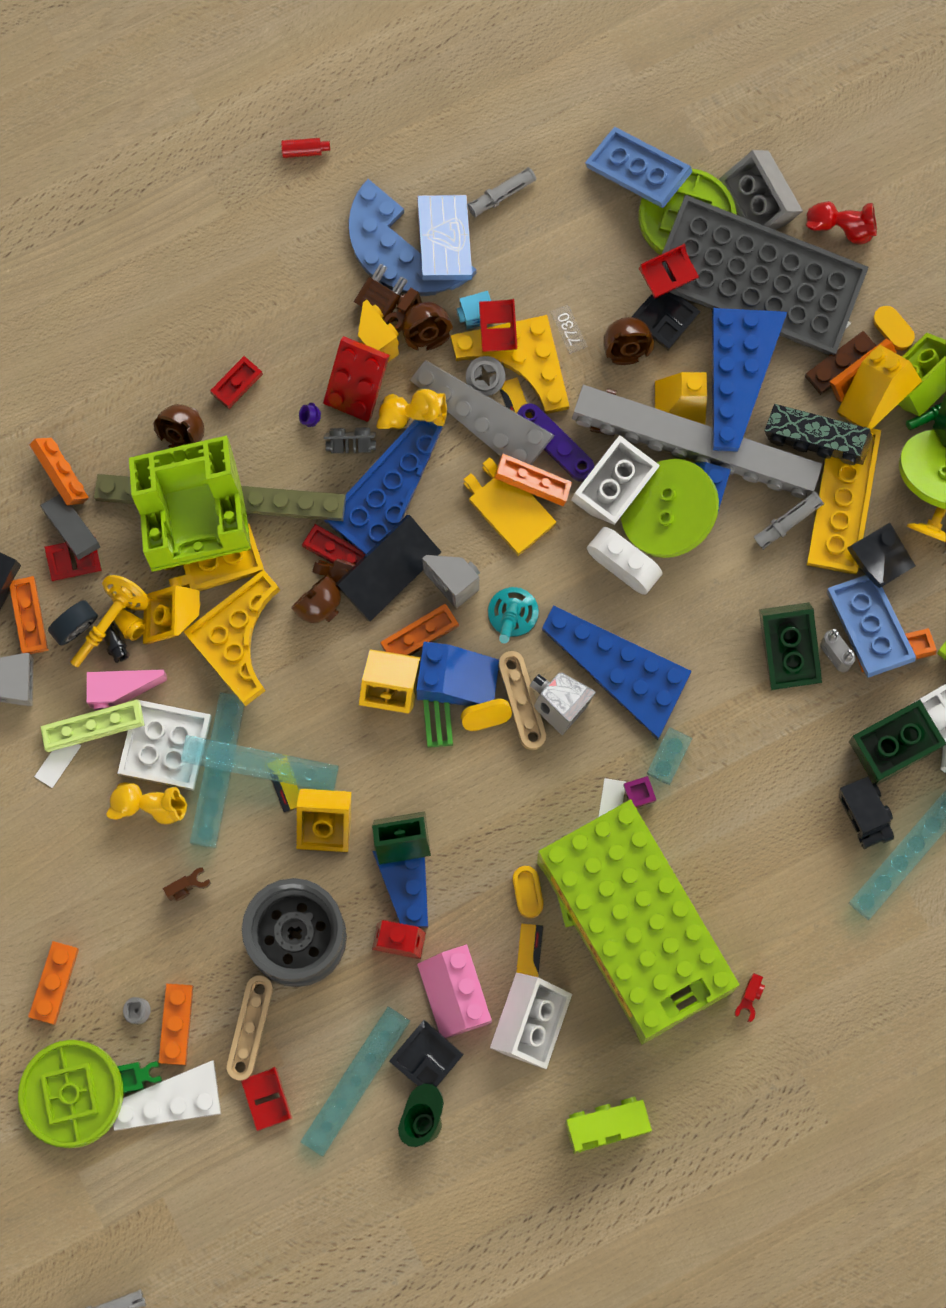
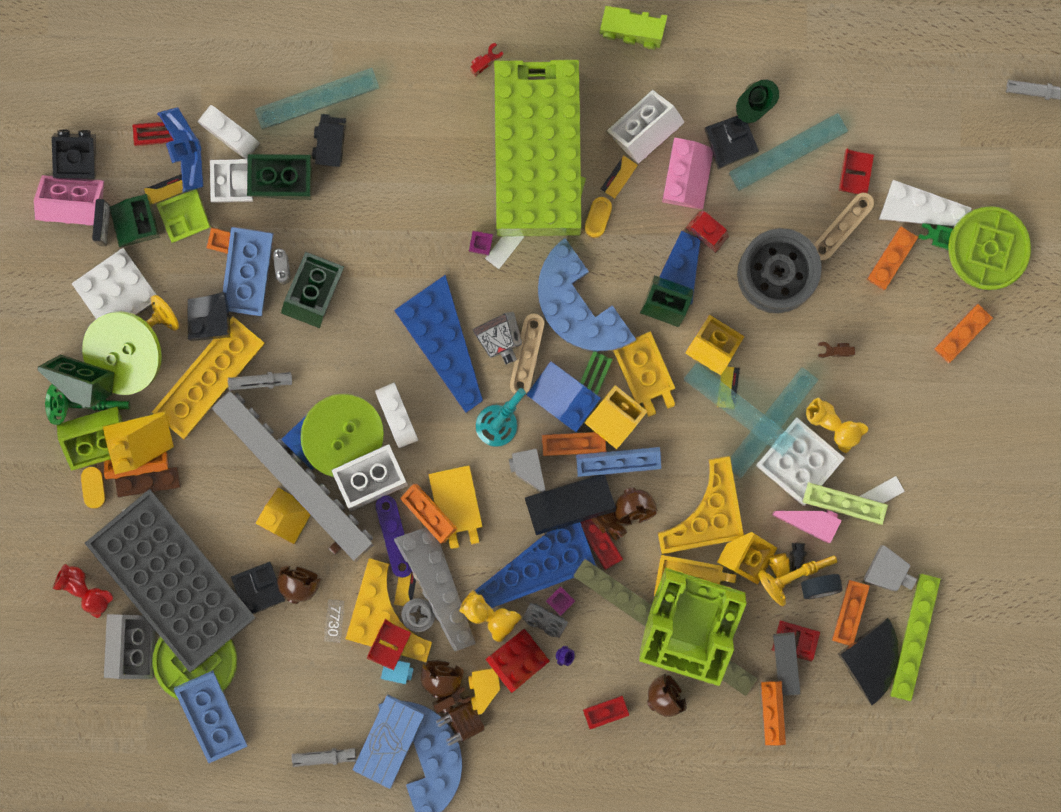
camera: 155 degrees left, 10 degrees up
(136, 1010) = (915, 281): light grey tile -> none
(345, 467) = (560, 600): none -> magenta plate
(361, 640) = (618, 461): none -> medium blue plate
(384, 751) = (645, 372): none -> yellow tile
(486, 714) = (558, 358): yellow tile -> none
(505, 771) = (569, 313): none -> medium blue plate
(669, 756) = (445, 257): clear light blue plate -> none
(679, 266) = (228, 615): red piece -> none
(740, 358) = (224, 519): blue wing -> none
(818, 434) = (201, 432): black brick -> none

